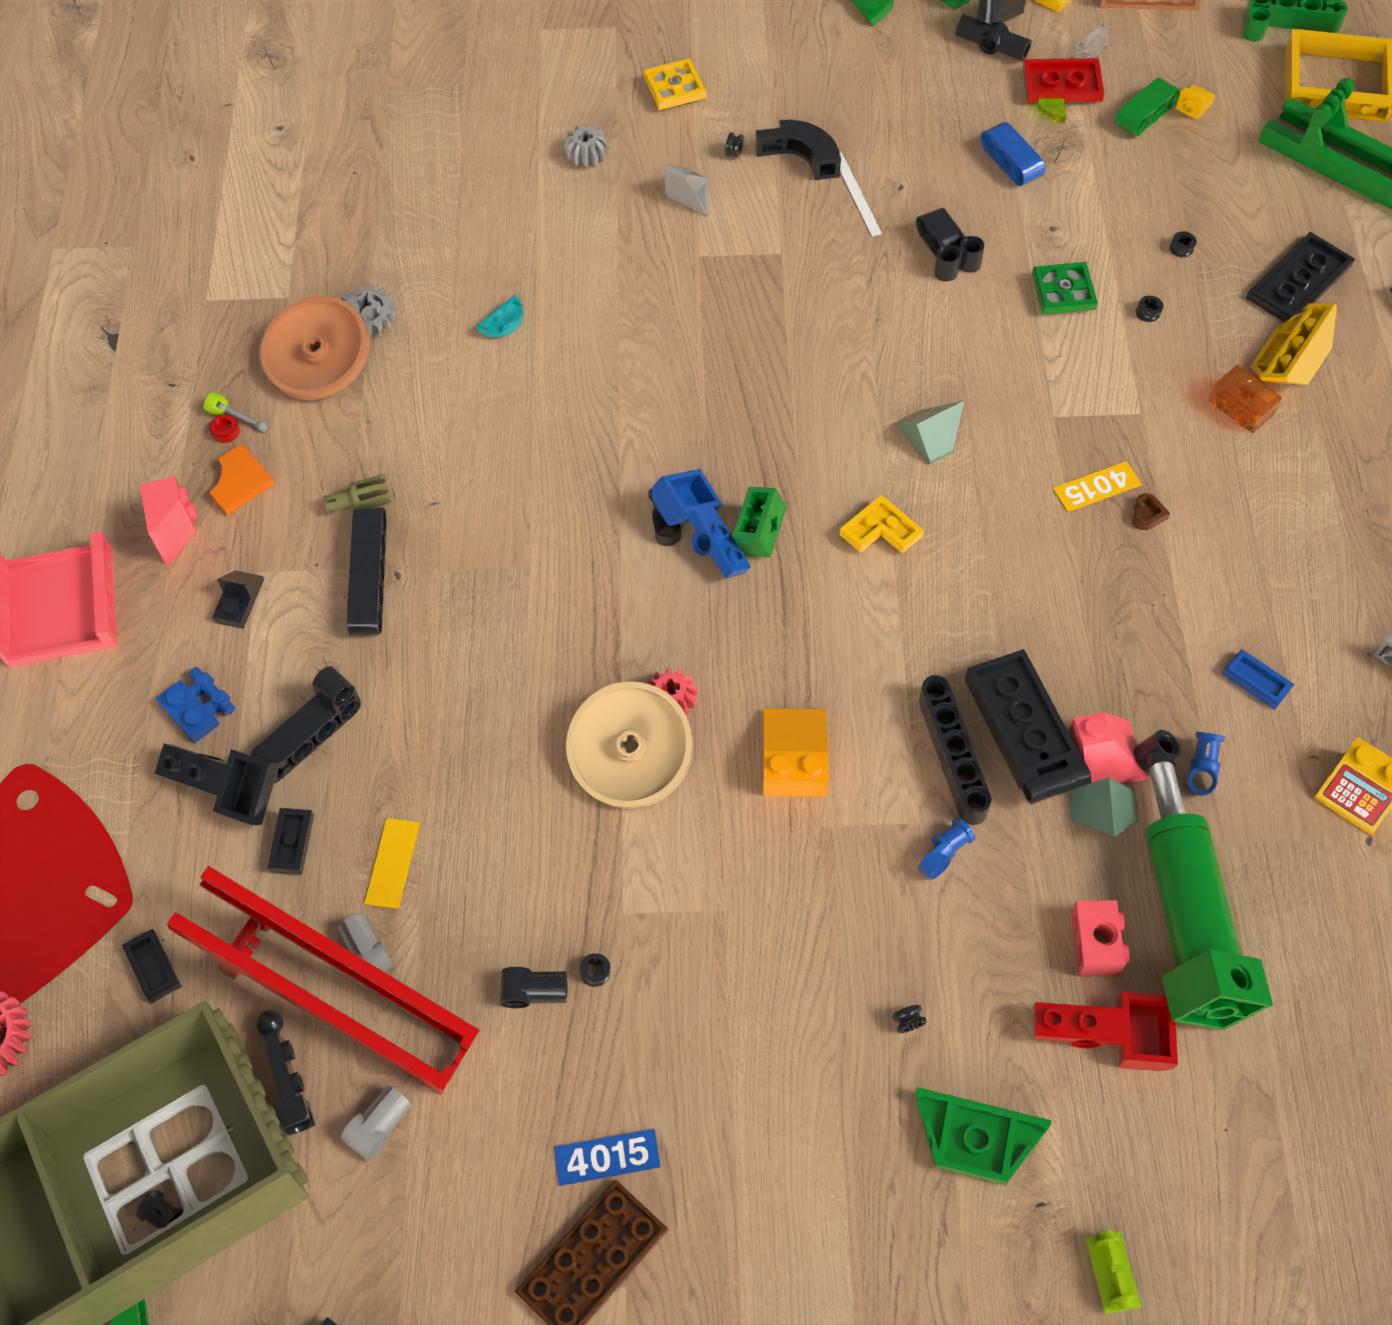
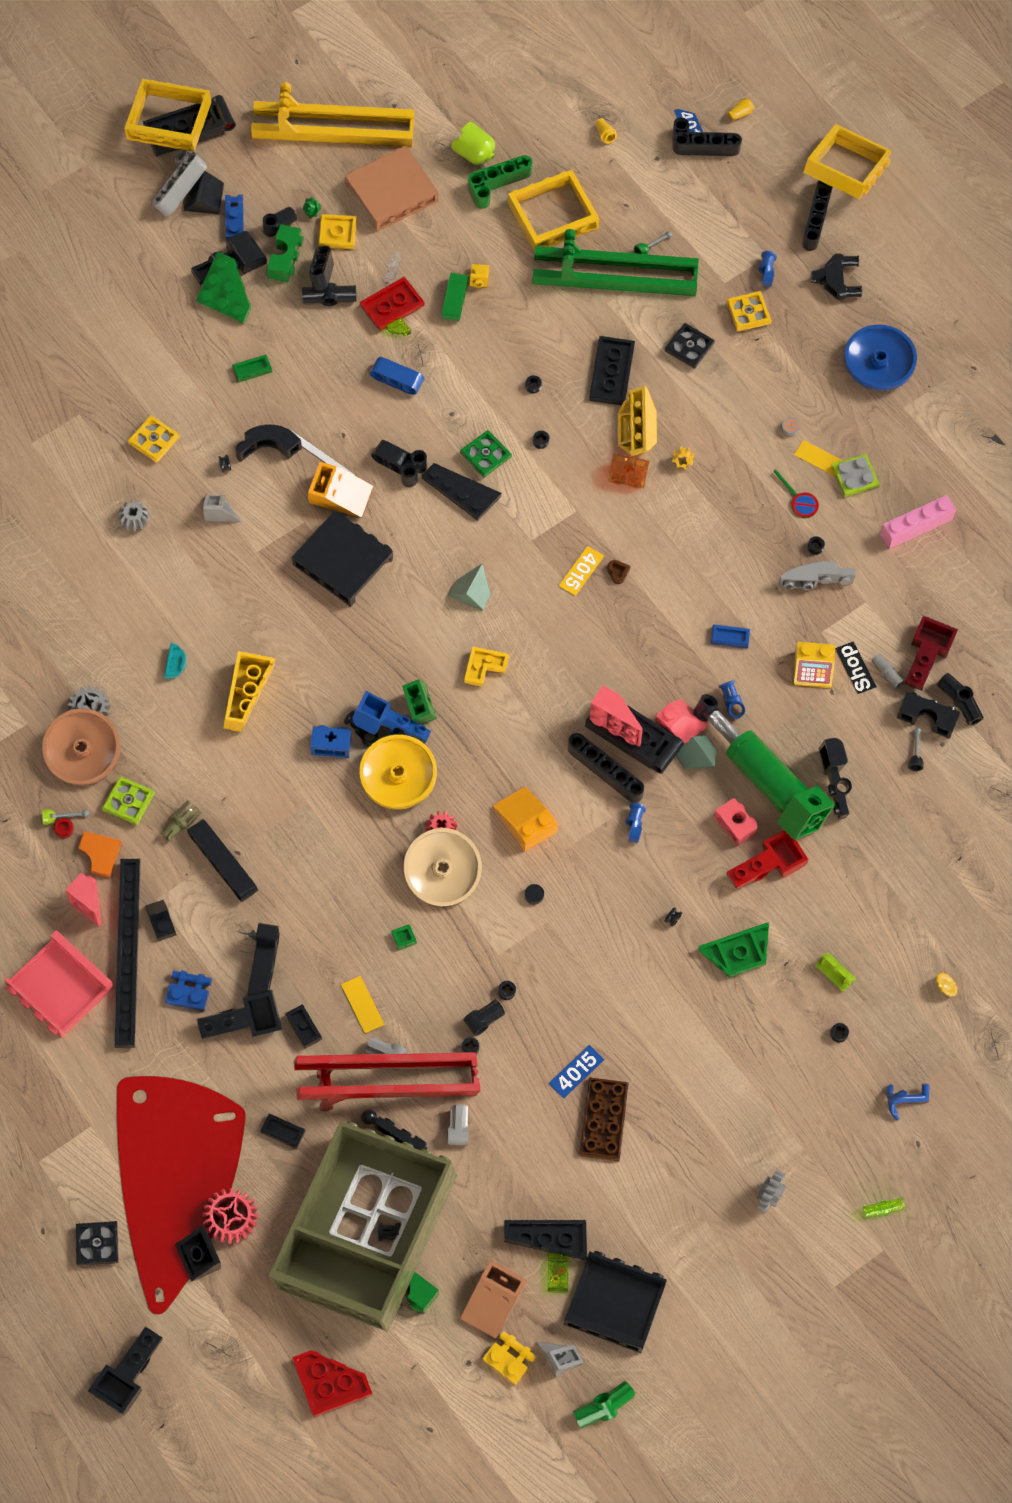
camera: 40 degrees left, 5 degrees up
(161, 616) = (127, 953): none -> black plate
(320, 439) = (128, 800): none -> lime piece
(484, 1006) = (470, 1040): none -> black bush
(514, 807) = (404, 937): none -> green tile
(556, 389) = (247, 684): none -> yellow wedge
(612, 508) = (338, 747): none -> blue brick
(666, 590) = (398, 772): none -> yellow dish
(732, 860) = (534, 894): none -> black tile
(793, 307) = (342, 557): none -> black panel
(845, 70) = (252, 368): none -> green tile
(845, 234) = (339, 490): none -> slope
(1003, 315) = (464, 492): none -> black wing
(1007, 675) = (612, 713): none -> coral slope
(1311, 939) = (833, 760): none -> black plate
(1342, 422) = (685, 461): none -> yellow gear

